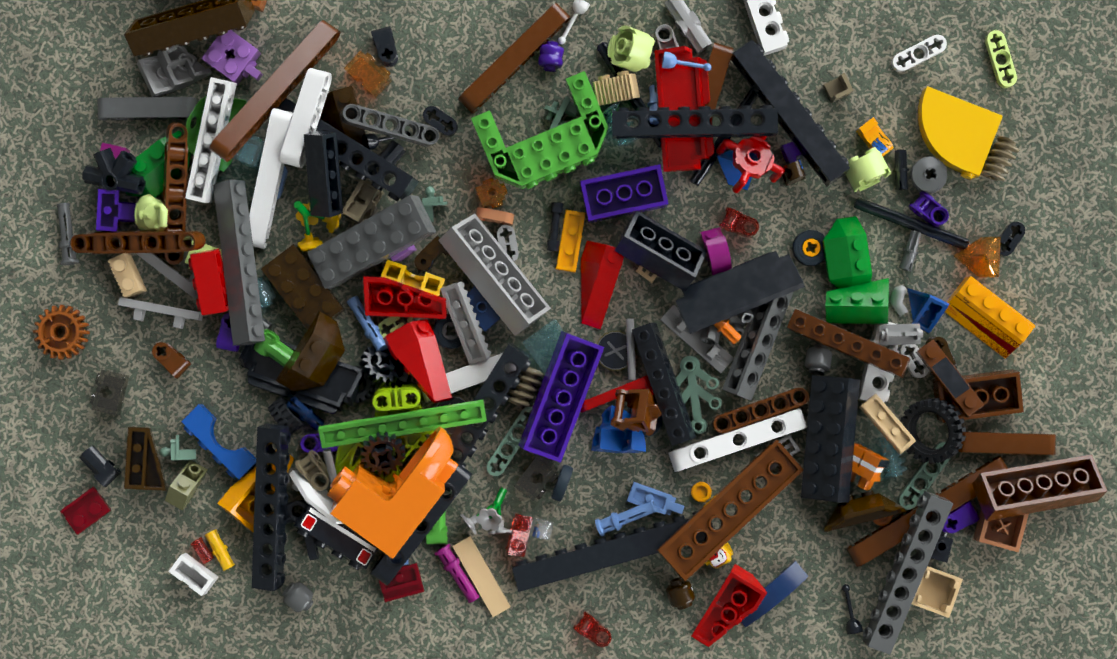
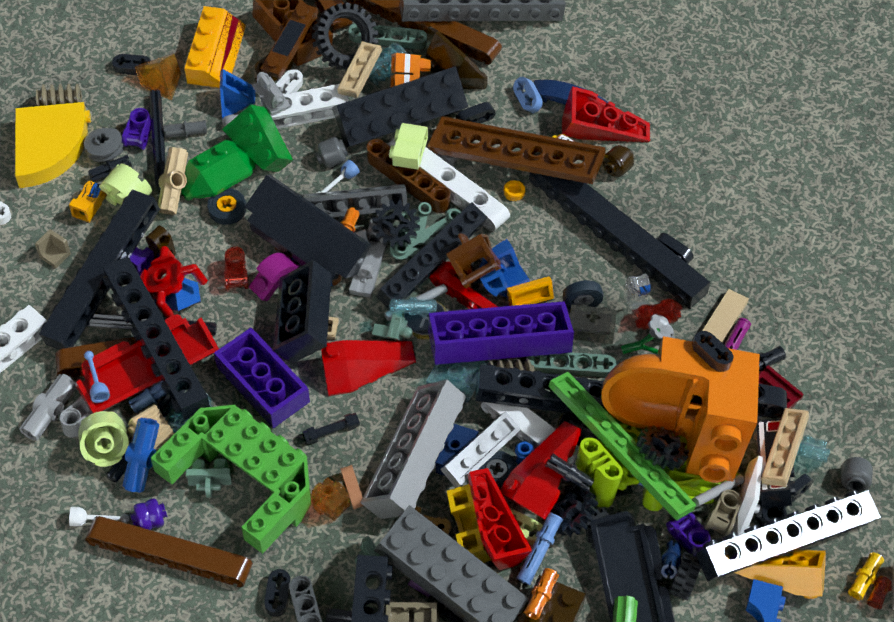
camera: 115 degrees left, 30 degrees down
(314, 355) = (606, 574): dark brown wedge -> none
(321, 298) = (541, 593): none -> orange pin
(334, 576) = (813, 451): none -> clear light blue piece
(336, 548) = (785, 447): none -> tan tile
(401, 372) = (569, 472): none -> black pin
(408, 514) = (711, 349): none -> black beam
(431, 605) = (771, 357): none -> black pin
(447, 352) = (522, 450): none -> blue pin
(512, 241) = (369, 460): light grey beam -> none
(570, 241) = (335, 408): light orange tile -> none
(570, 585) = (676, 247): none -> black beam
(590, 445) = (531, 292): none -> light orange tile
(592, 629) = (700, 214): clear red piece -> none
(597, 69) = (139, 454): none -> blue piece
(613, 316) = (395, 331): none -> sand green piece
(616, 520) = (587, 238): medium blue pin -> none
(622, 342) = (412, 306): none -> clear light blue pin
(664, 502) = (547, 221): medium blue hinge -> none
(701, 376) = (388, 221): none -> black gear
(779, 421) = (409, 146): none -> yellowish green brick
(792, 559) = (524, 97): none -> medium blue beam
(793, 364) = (348, 171): none -> medium blue hinge
(794, 500) = (478, 113): none -> black beam
(848, 343) = (303, 128): reddish brown brick -> none
(853, 625) = (554, 29): black hinge -> none
(862, 218) = (174, 170): none -> tan piece

